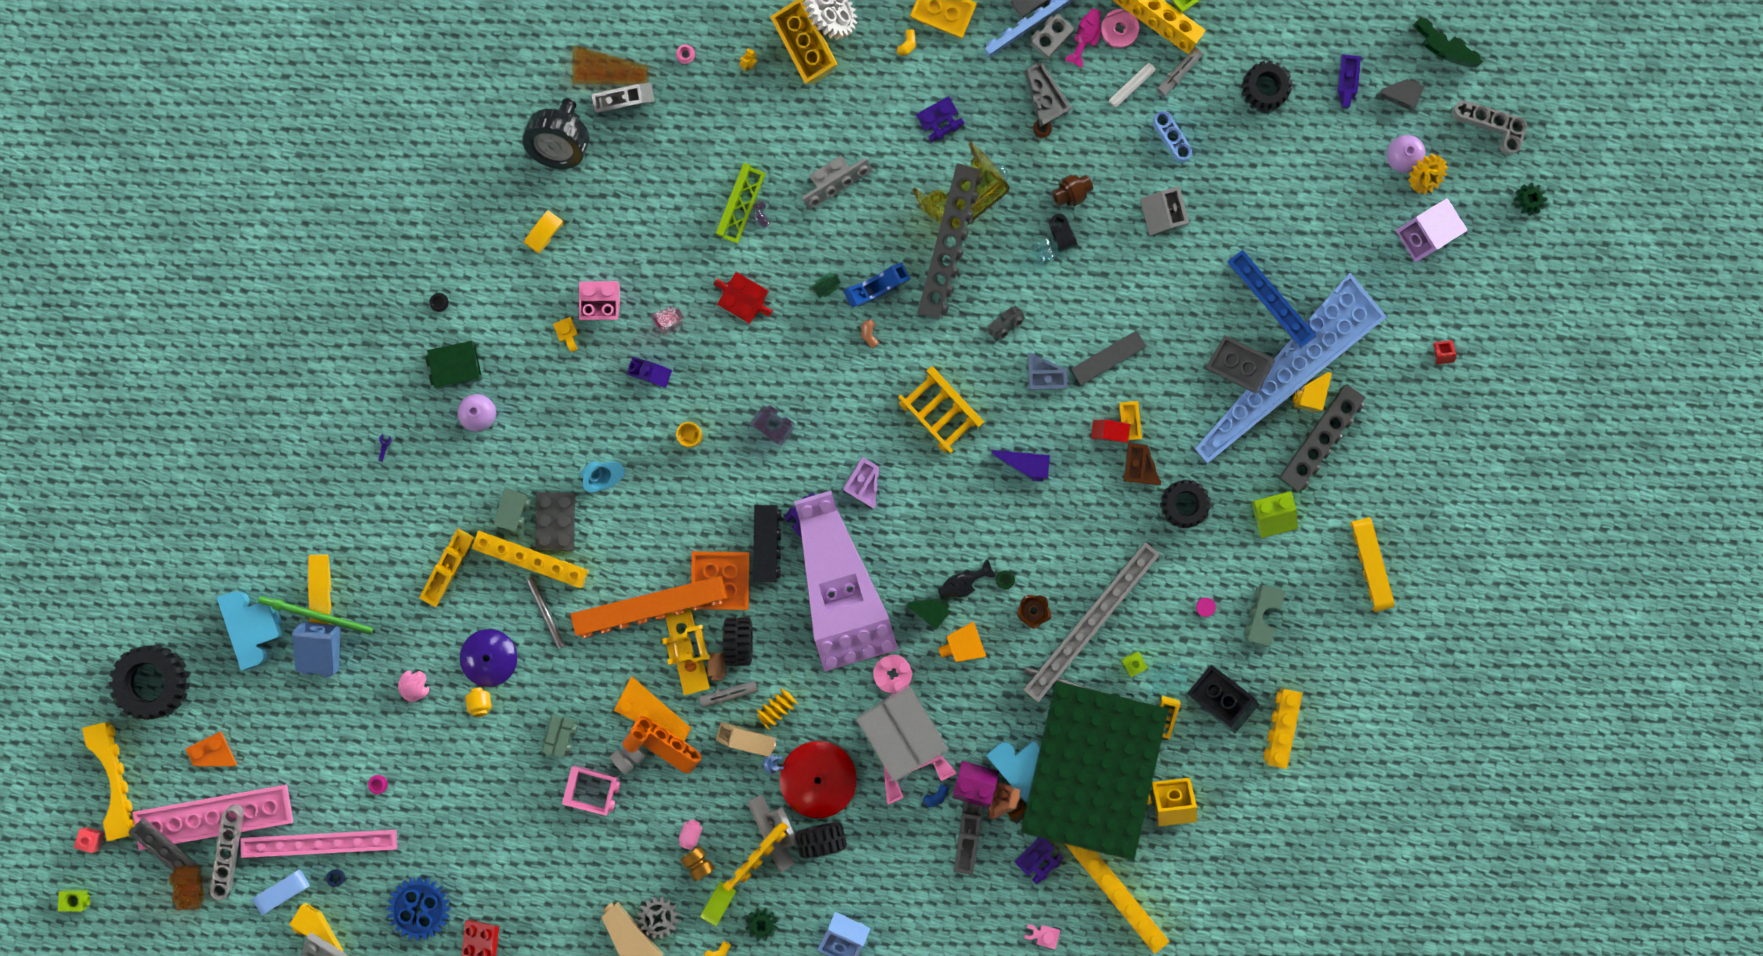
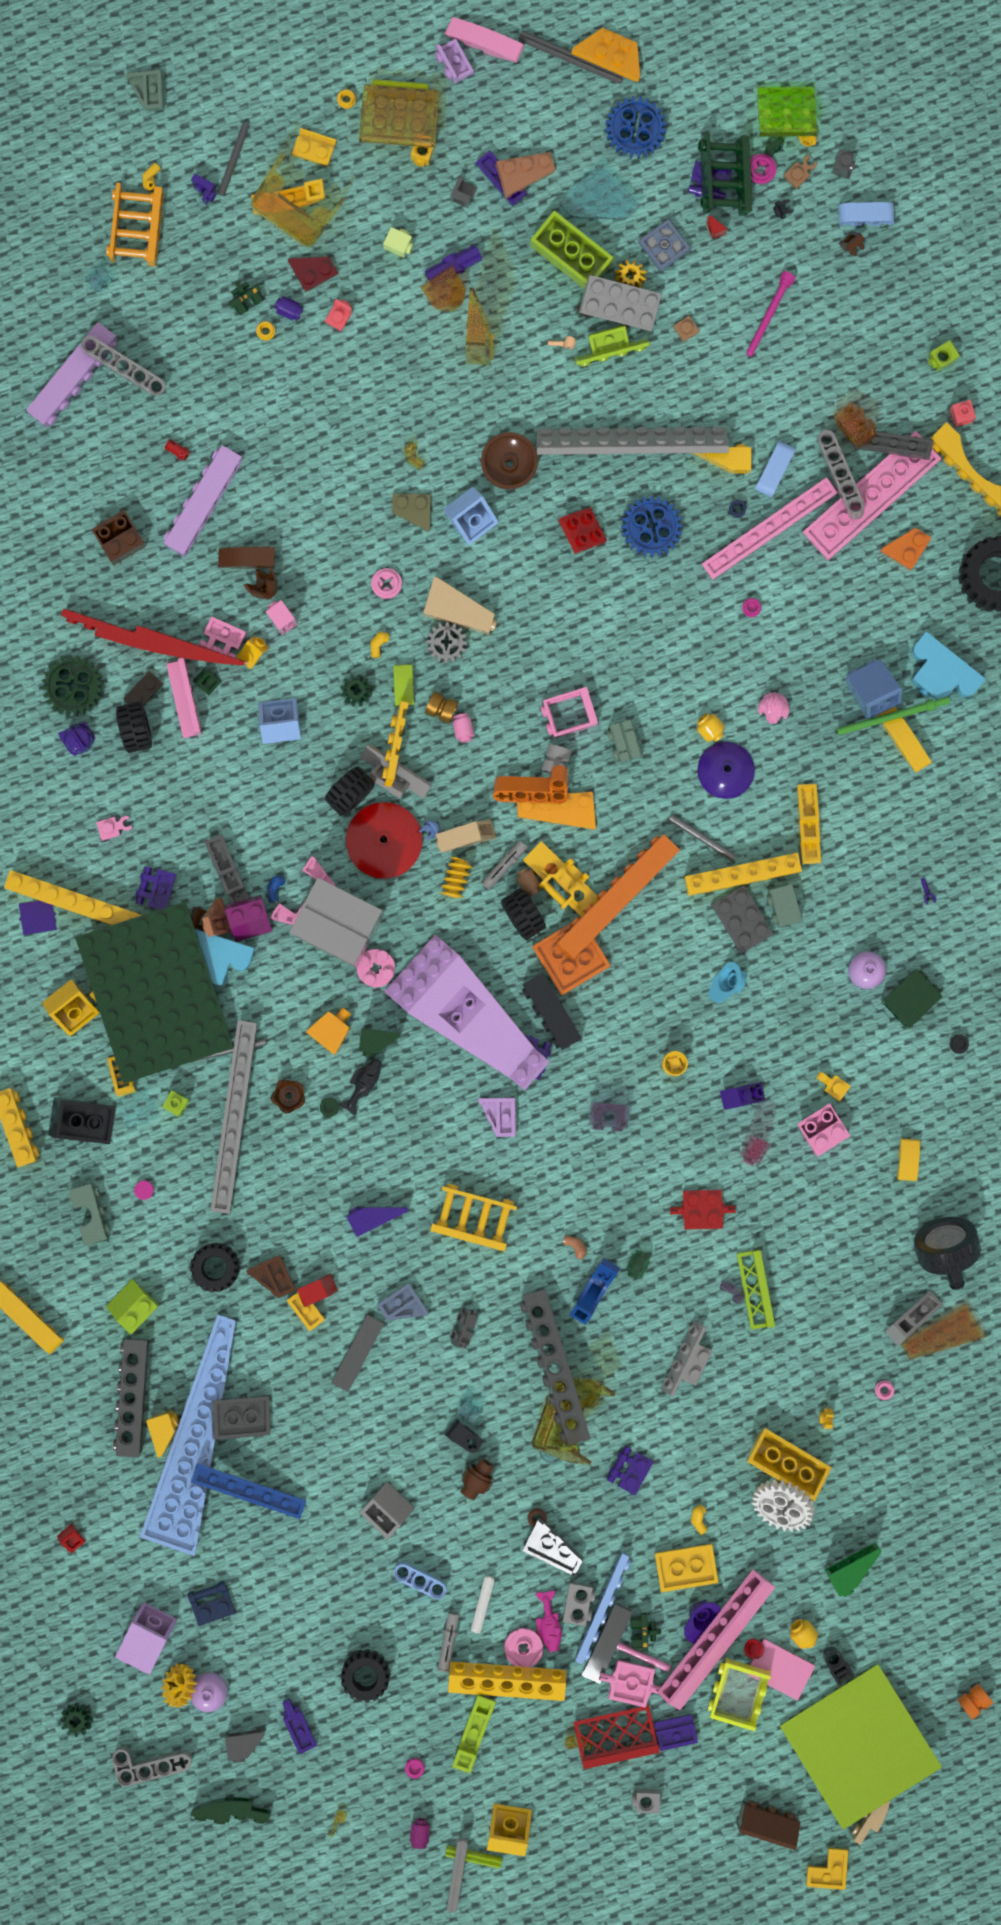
camera: 150 degrees right, 0 degrees up
(1155, 898) = (37, 917): none -> dark purple piece
(1359, 219) = (213, 1609): none -> dark blue plate

